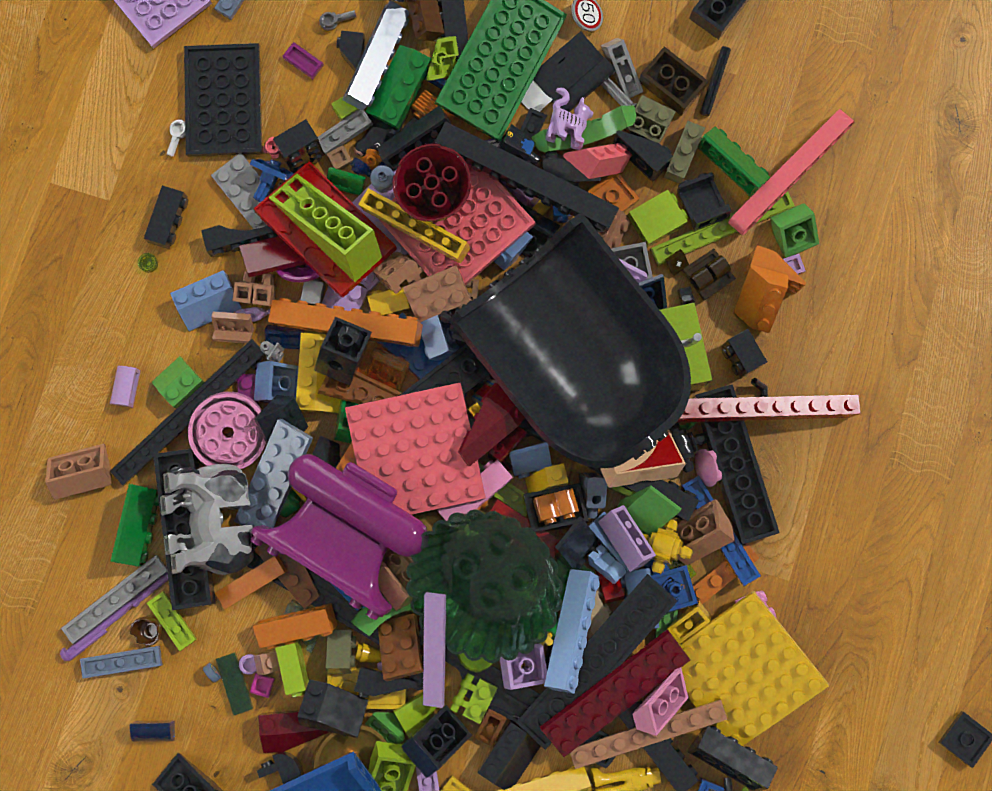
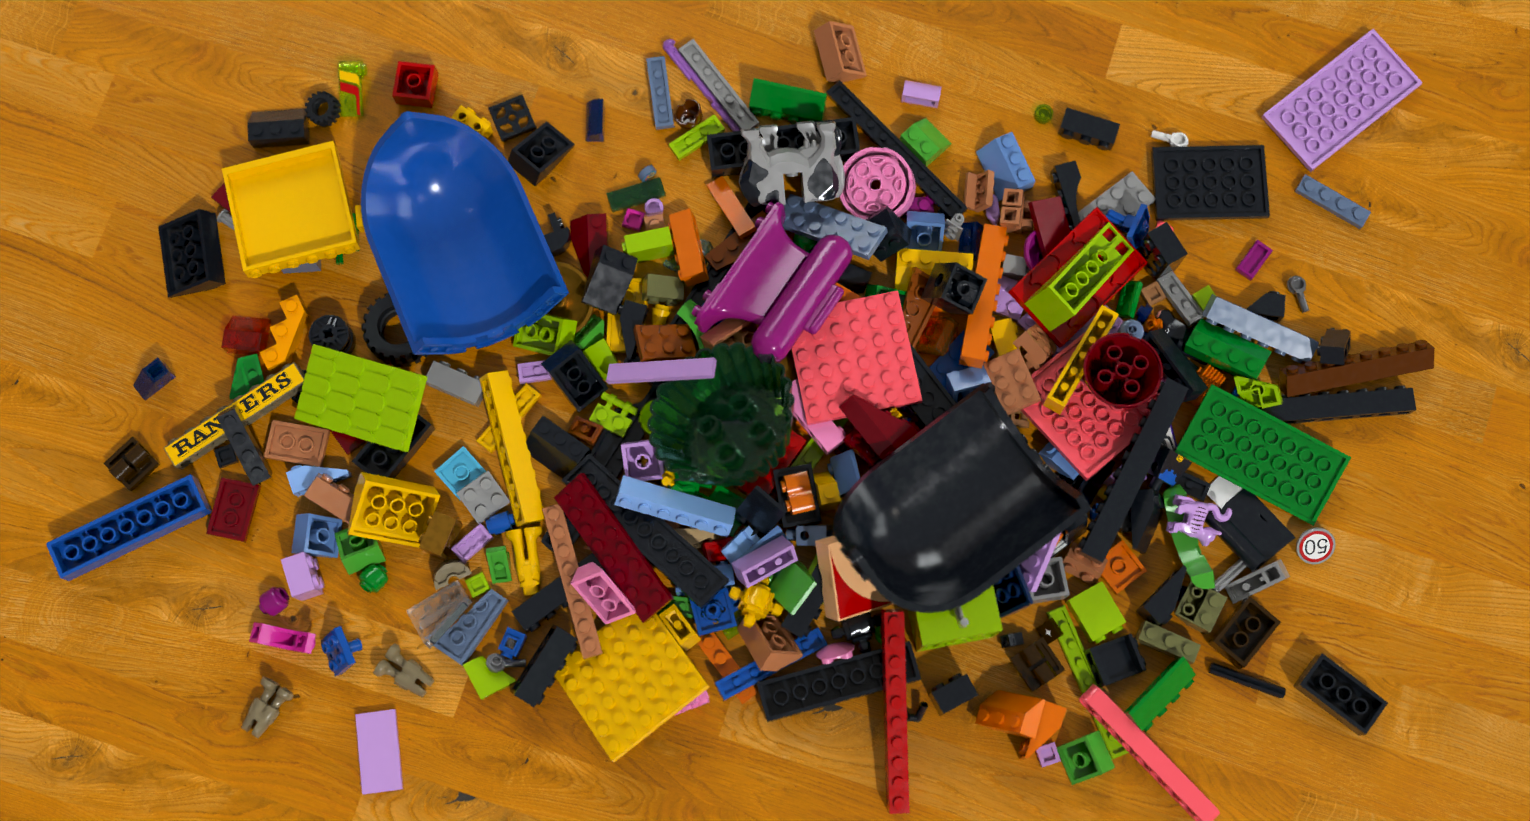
camera: 95 degrees right, 5 degrees down
(600, 160) = (1154, 549): coral slope -> none

